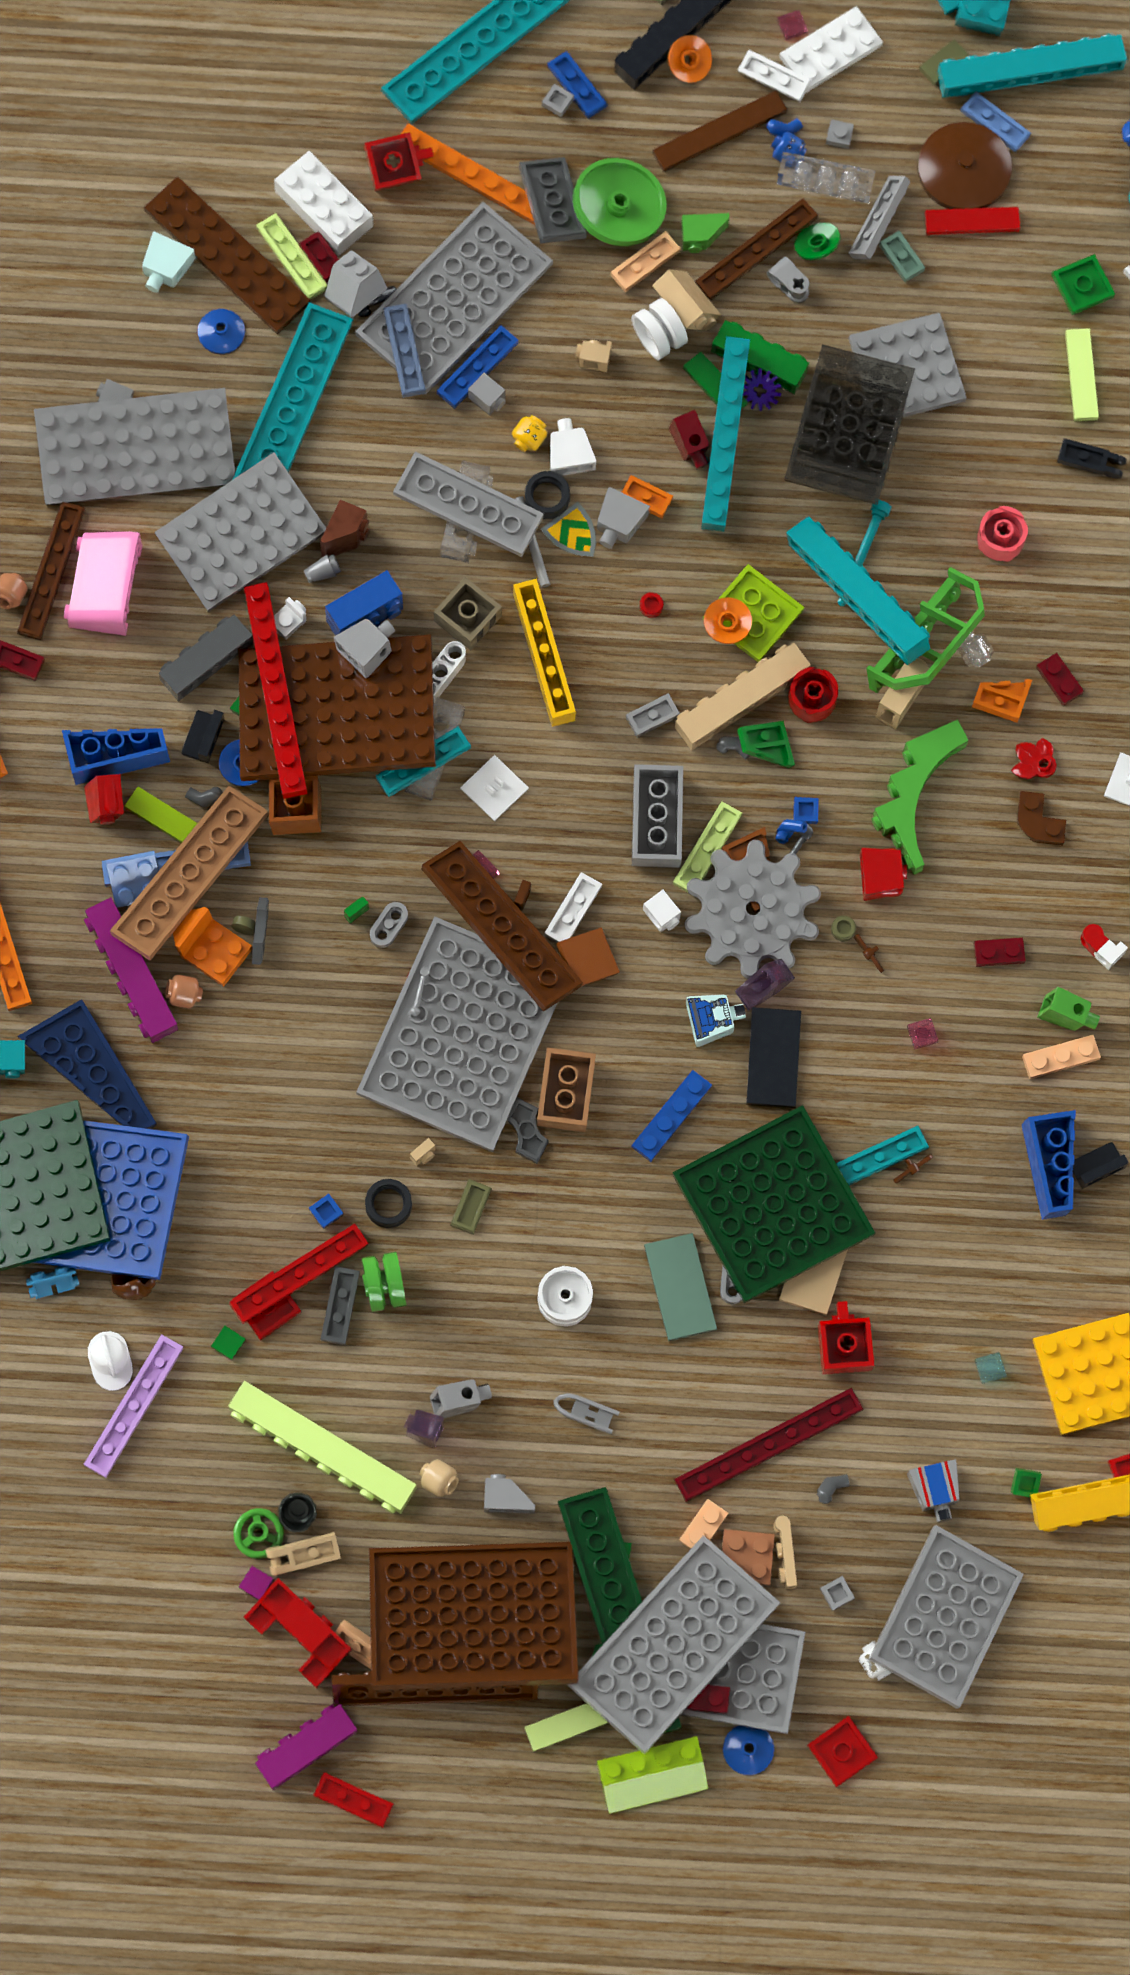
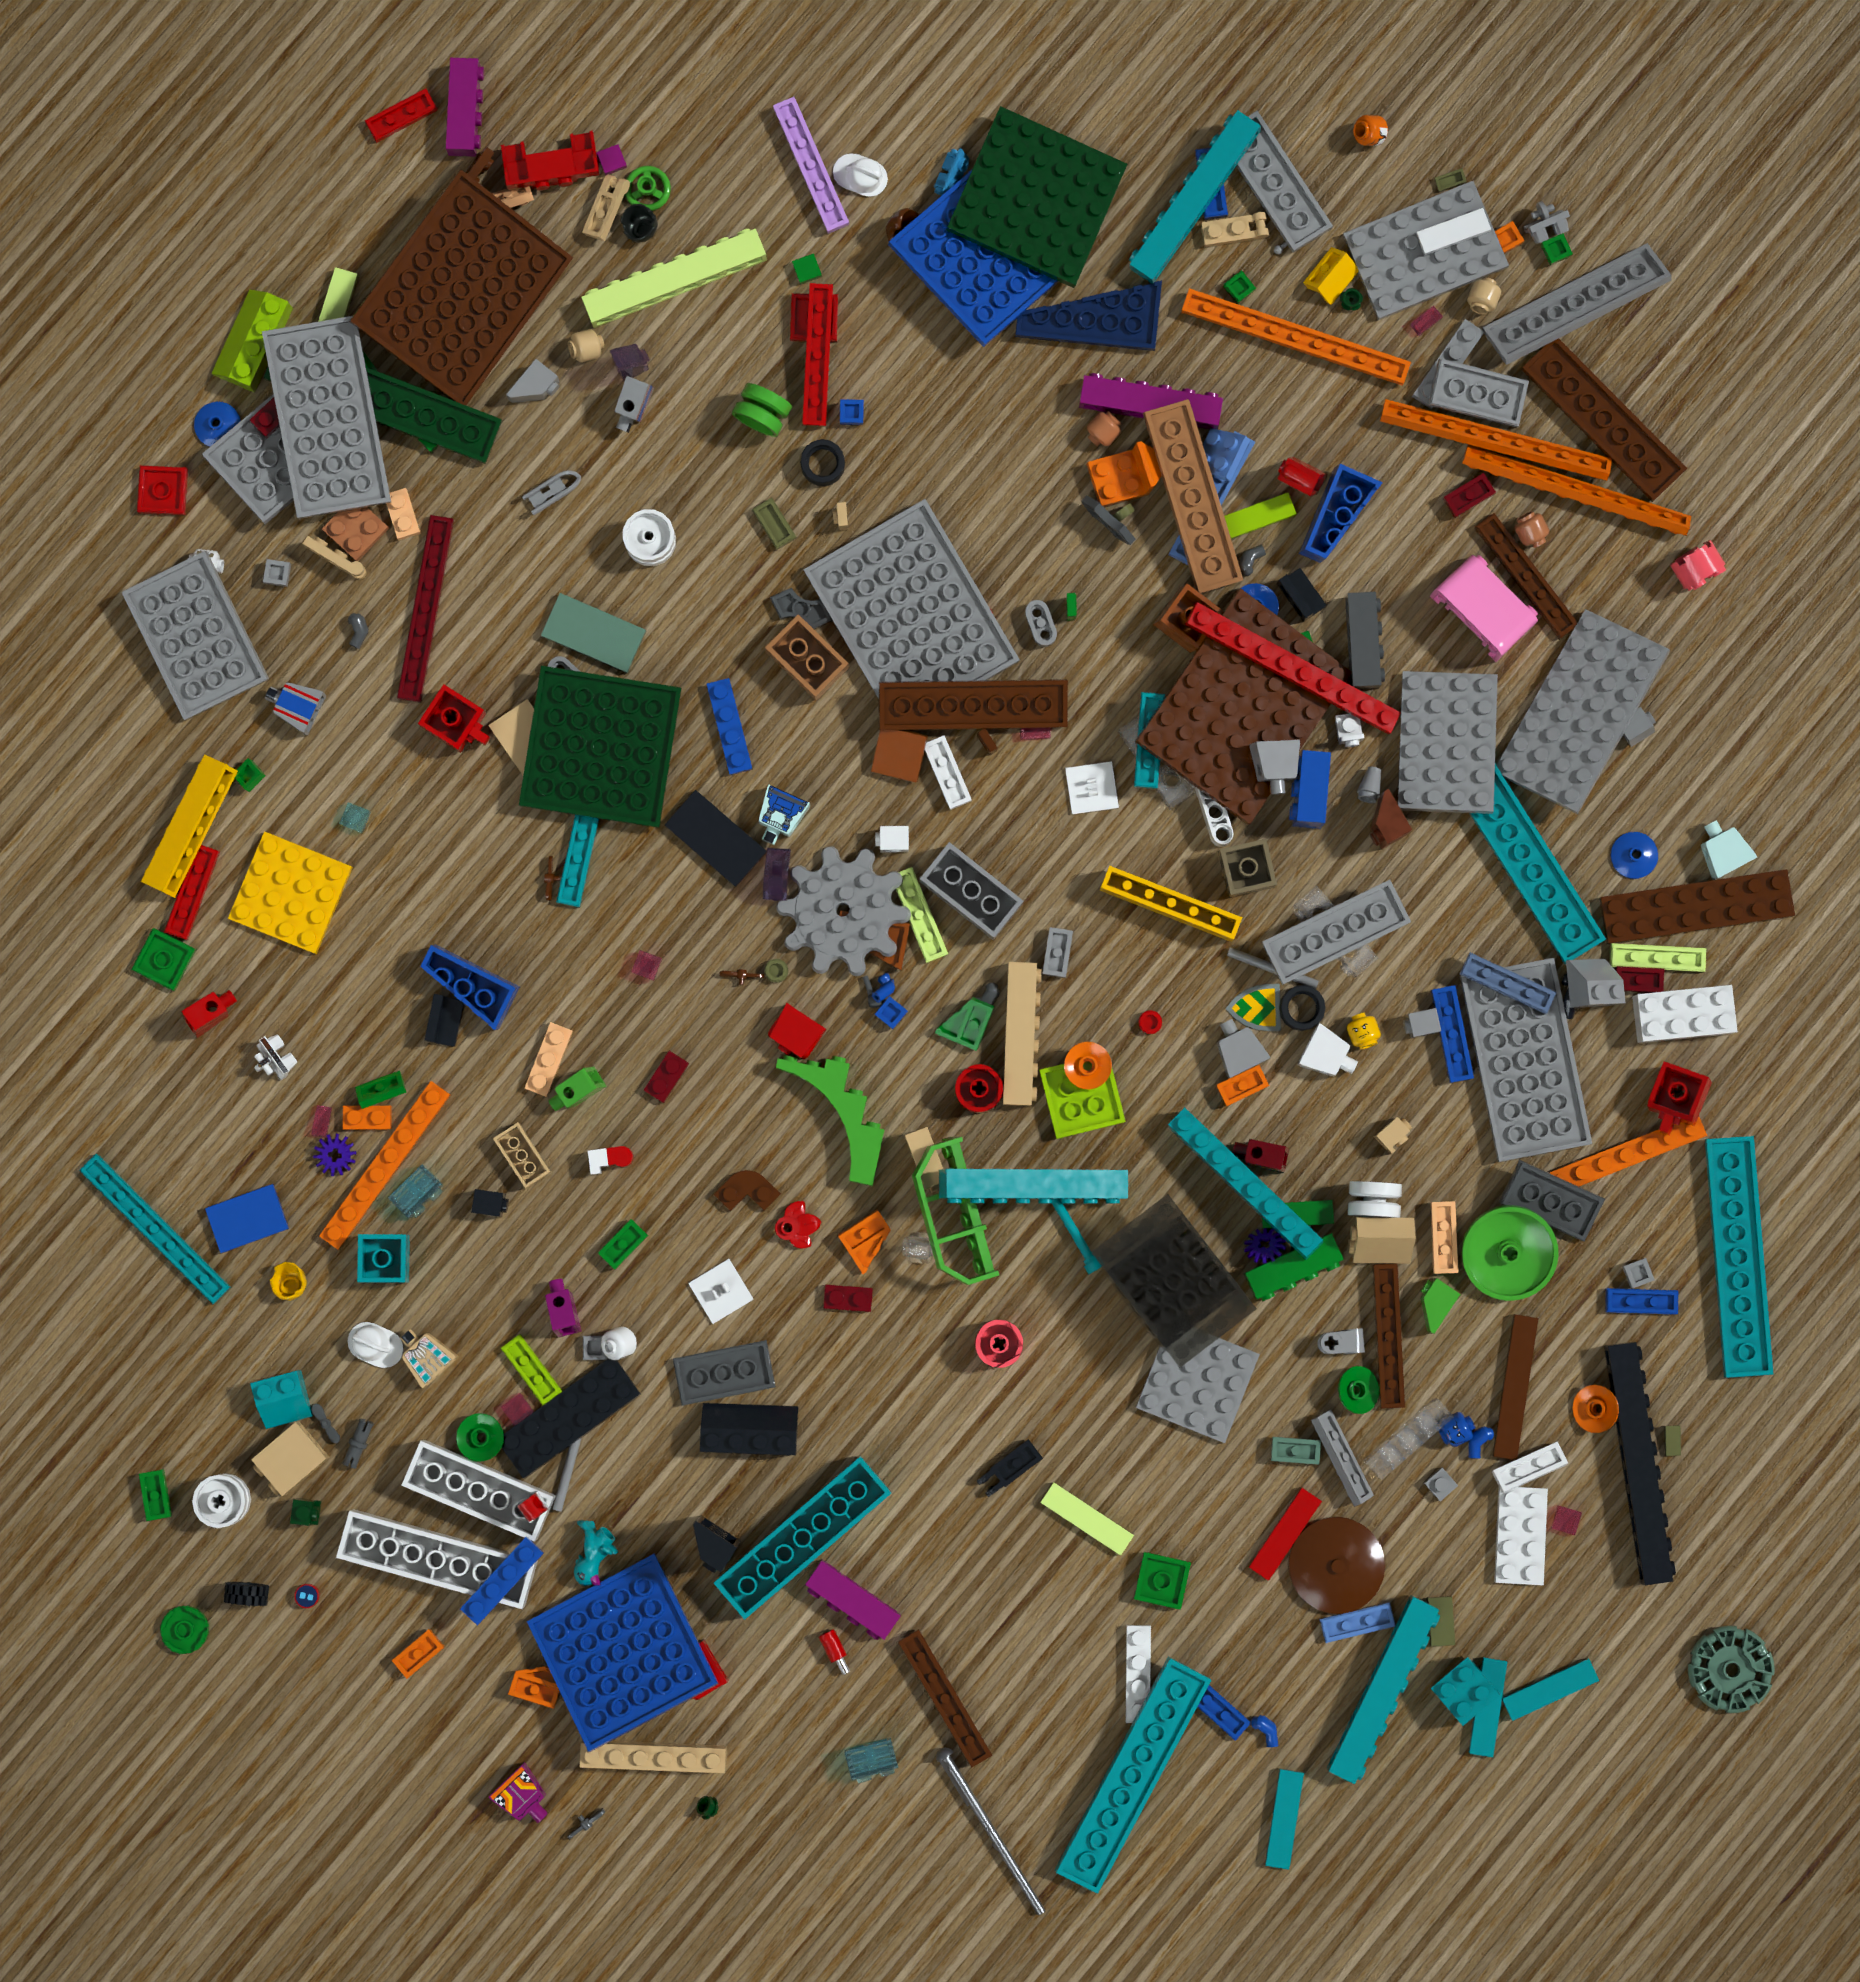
camera: 130 degrees right, 10 degrees up
(340, 1306) = (771, 369): dark grey plate -> none
(424, 972) = (980, 618): light grey hinge -> none

